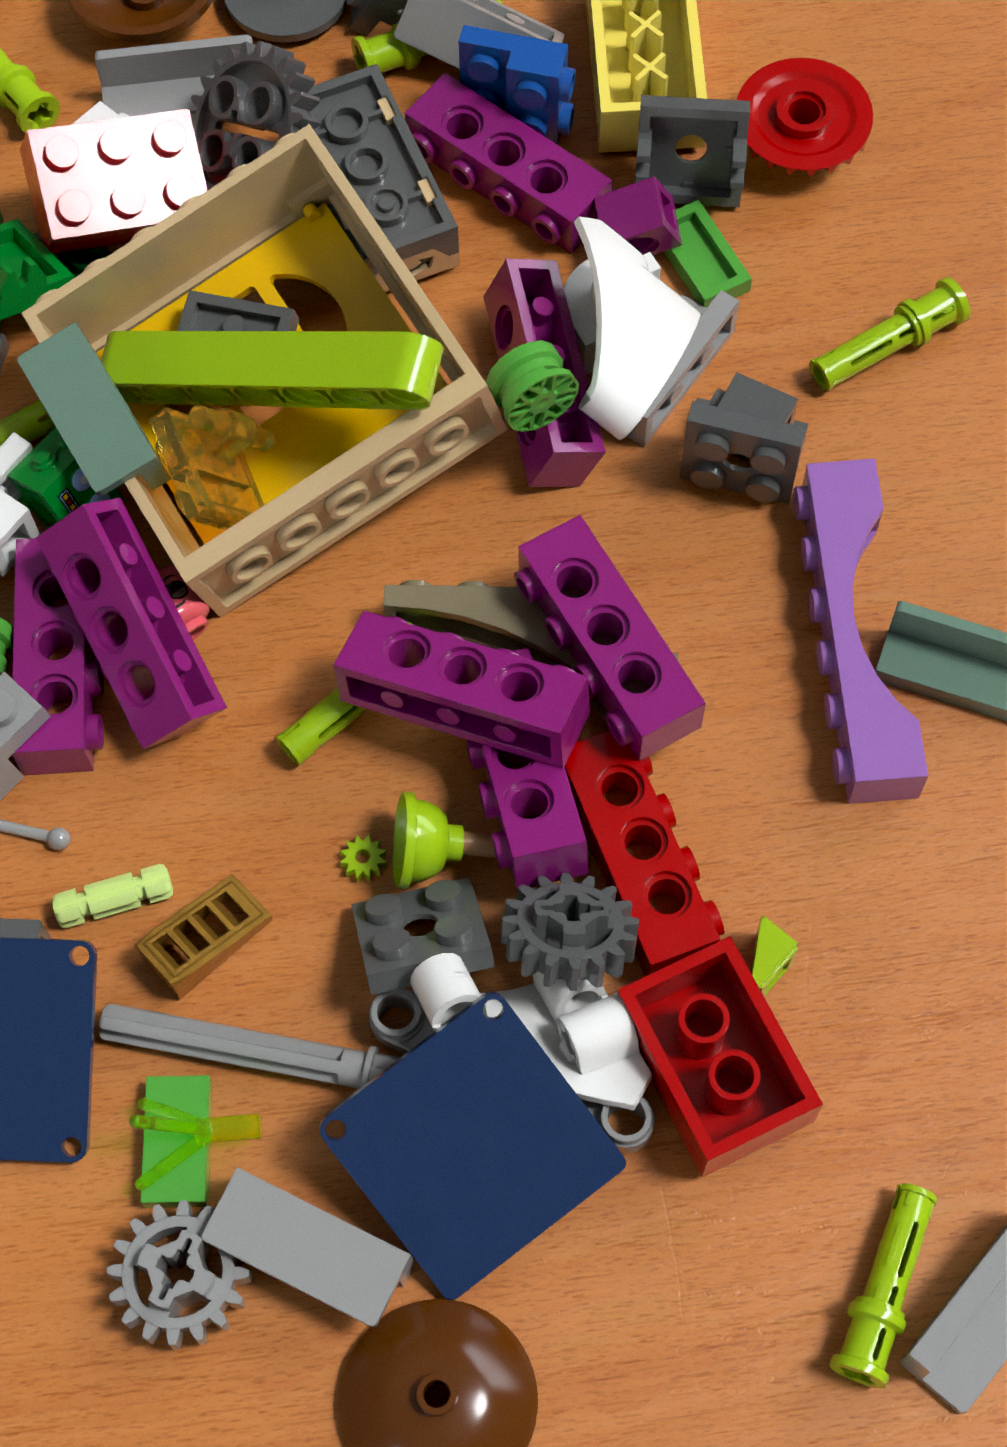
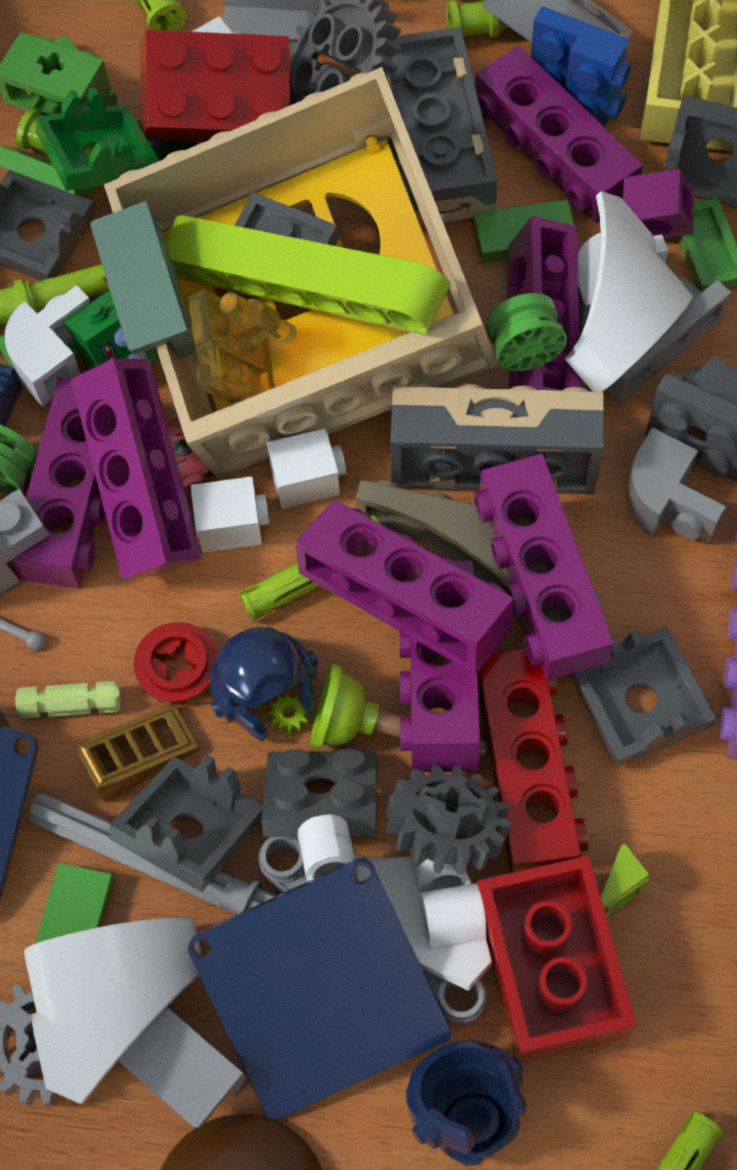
camera: 15 degrees right, 0 degrees up
(205, 1130) = (77, 909): clear neon green plant -> none
(206, 811) = (165, 643): none -> red gear
(235, 1205) = (101, 993): none -> white panel
(245, 652) = (228, 514): none -> white brick
(276, 967) = (182, 793): none -> dark grey piece
(317, 585) = (305, 468): none -> white brick
(317, 817) = (256, 669): none -> dark blue helmet
(469, 278) = (499, 227): none -> bright green tile
(476, 513) = (453, 433): none -> dark grey piece
(660, 1227) = (466, 1100): none -> dark blue helmet
(712, 536) = (659, 492): none -> light grey brick
(754, 719) = (651, 662): none -> dark grey piece

